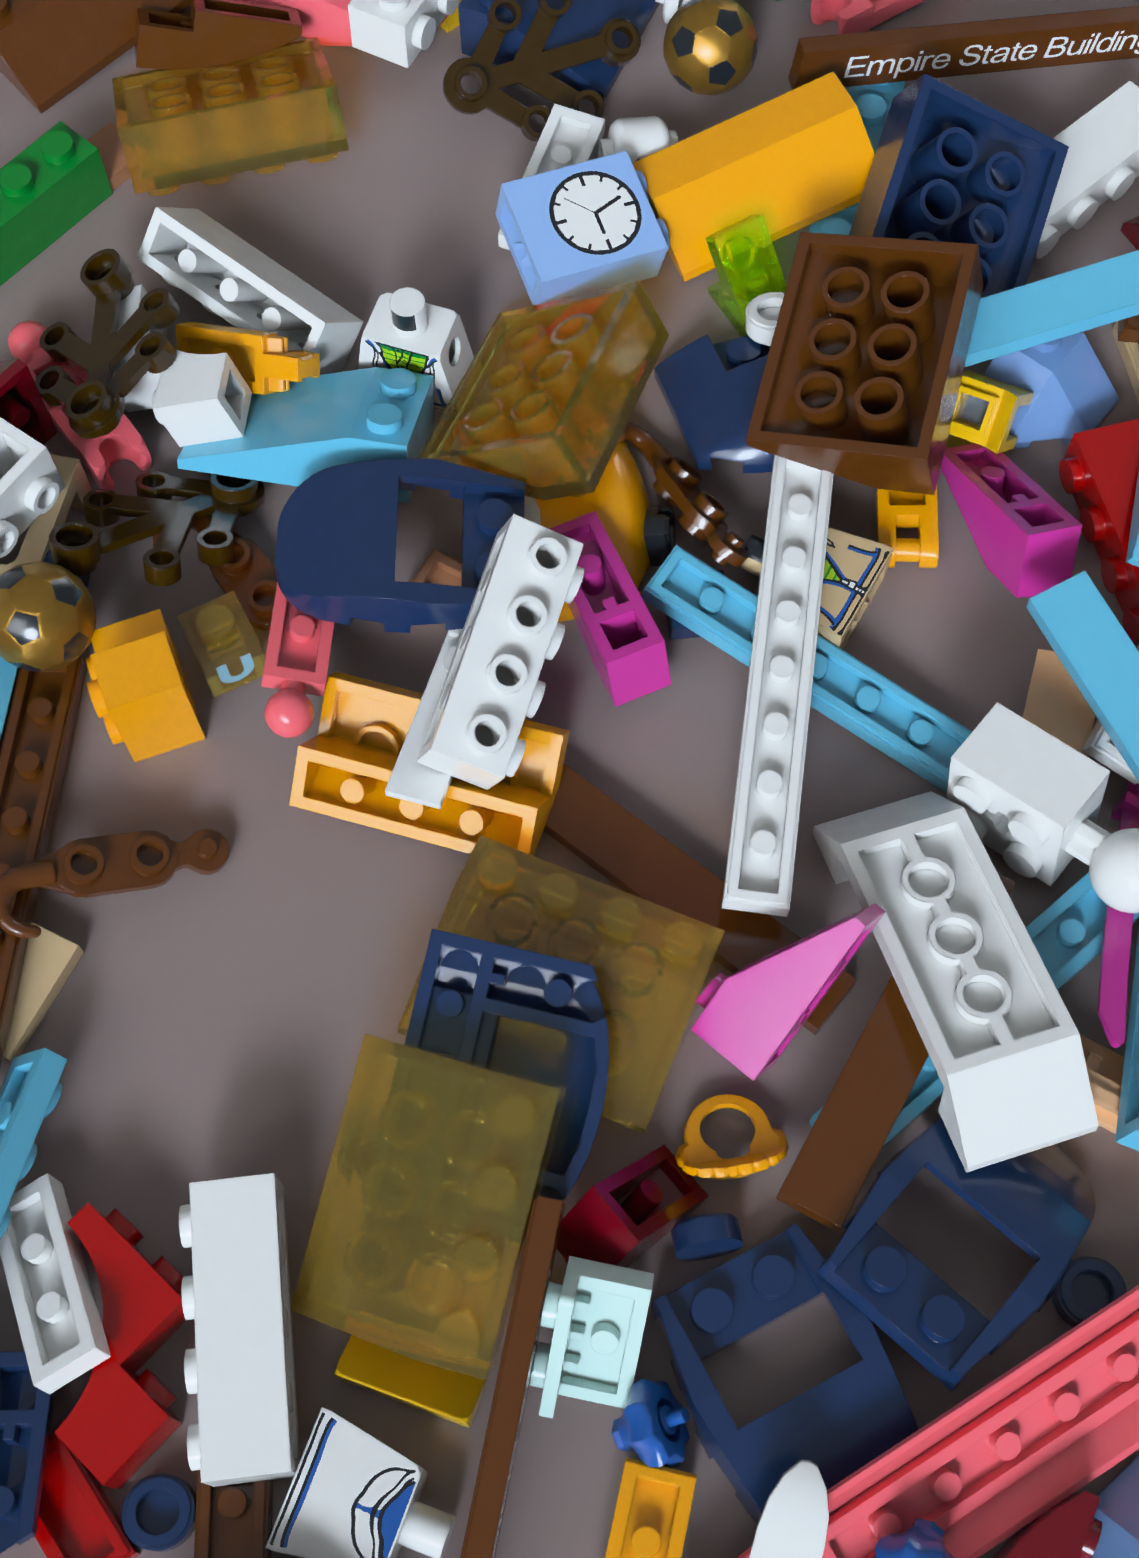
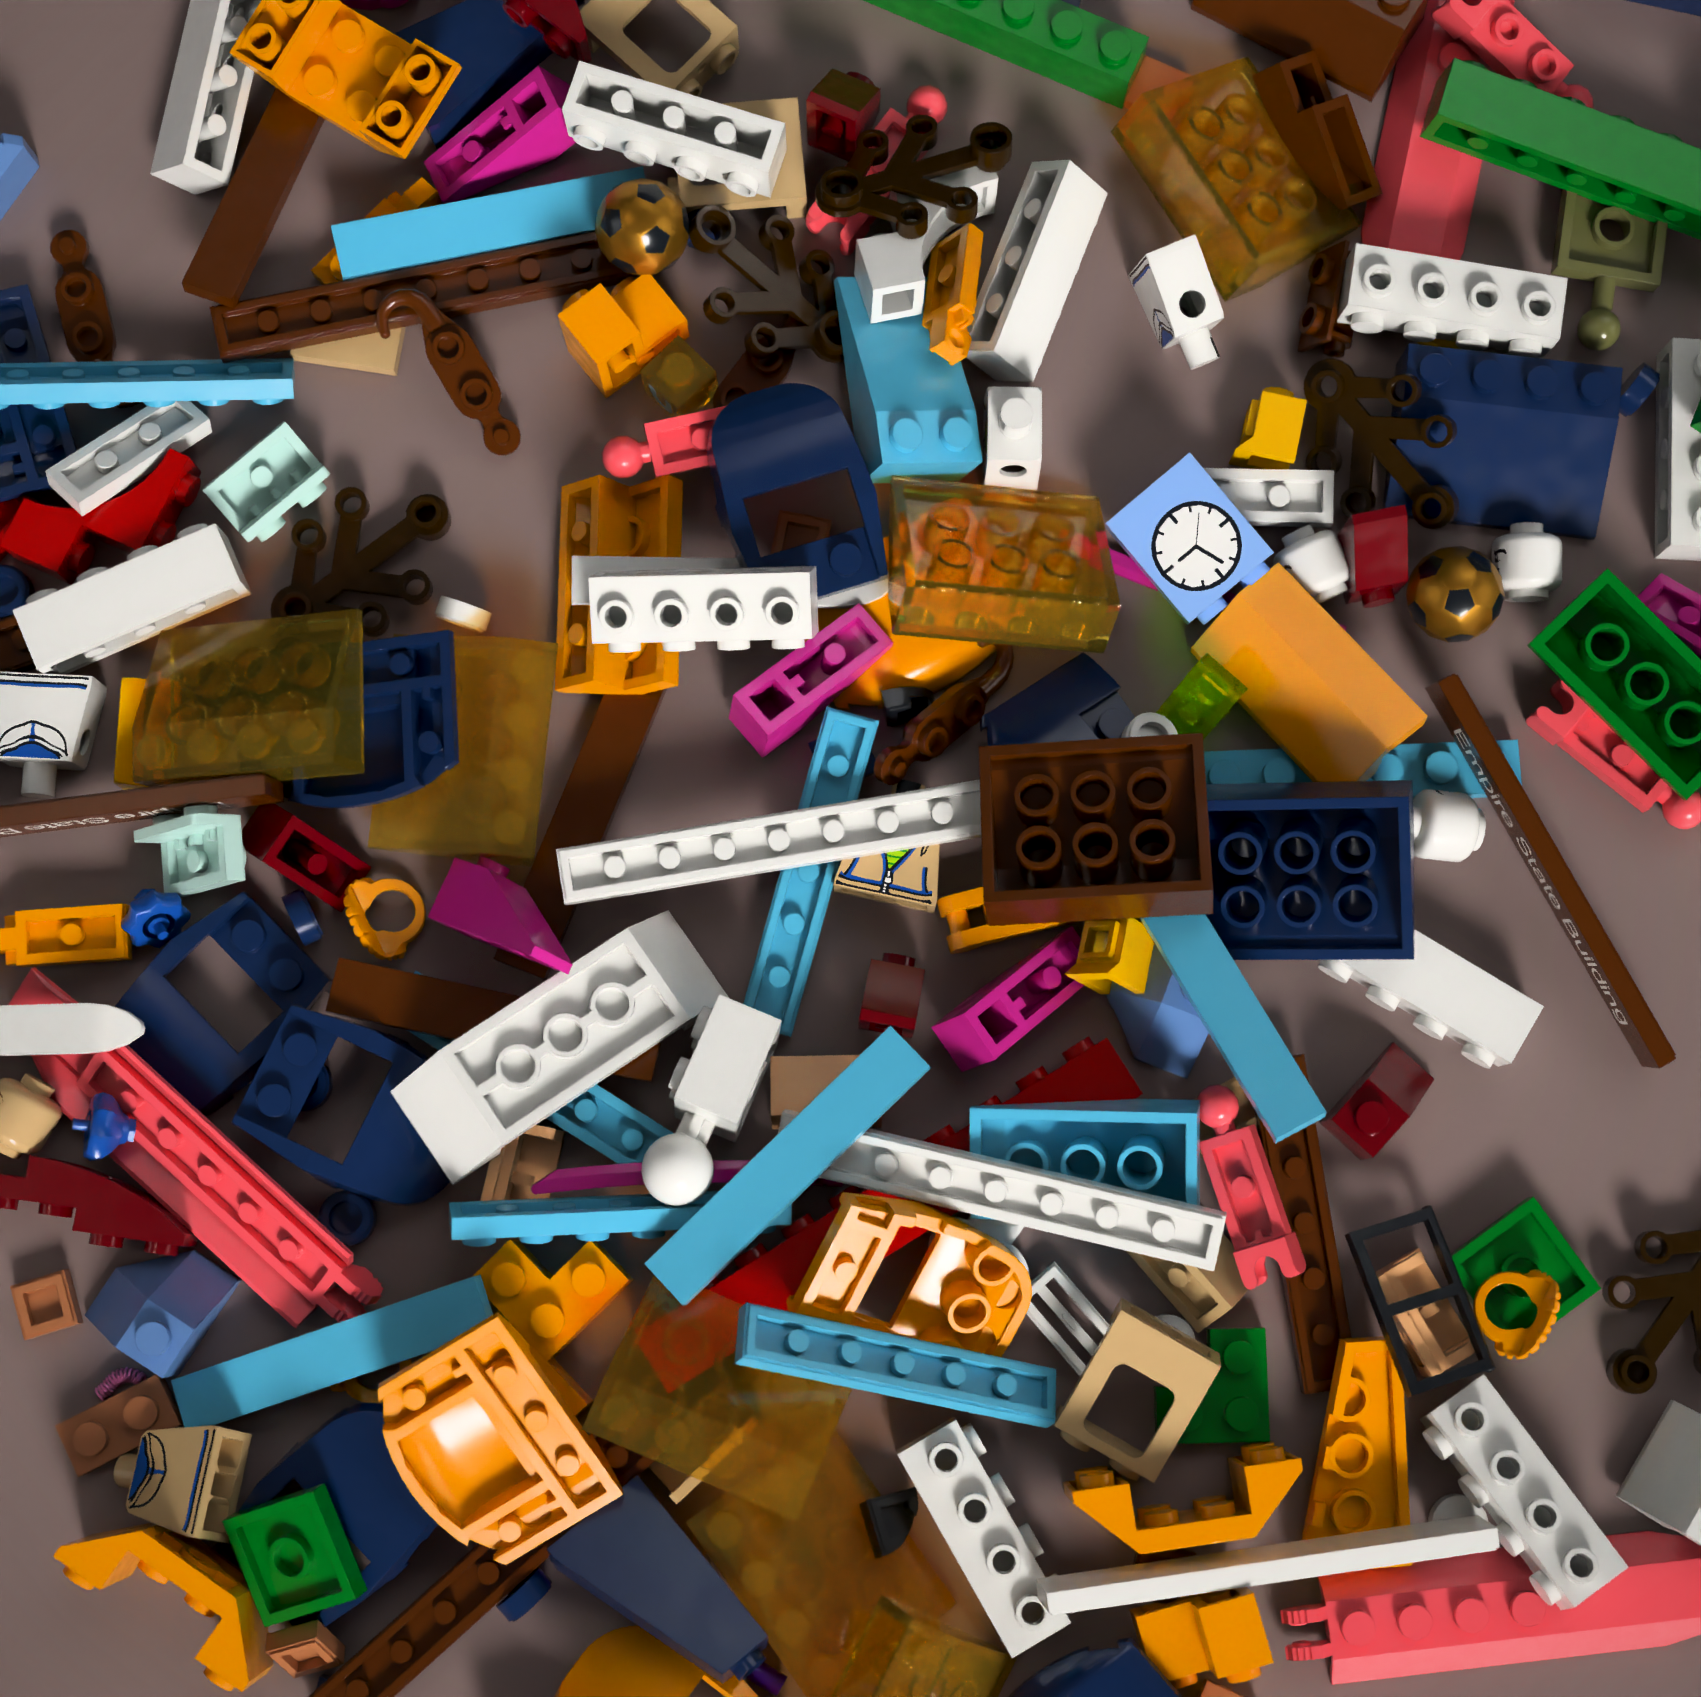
camera: 70 degrees right, 15 degrees up
(157, 1126) = (267, 483): none -> light aqua bracket
(300, 1060) = (353, 570): none -> dark brown plant
(332, 177) = (1175, 280): none -> white torso
(381, 76) = (1319, 316): none -> reddish brown hinge
(399, 947) = (462, 614): none -> white tile
(491, 145) = (1270, 431): none -> yellow window
(651, 84) = (1376, 555): none -> dark red slope
(978, 620) = (892, 995): none -> dark red slope

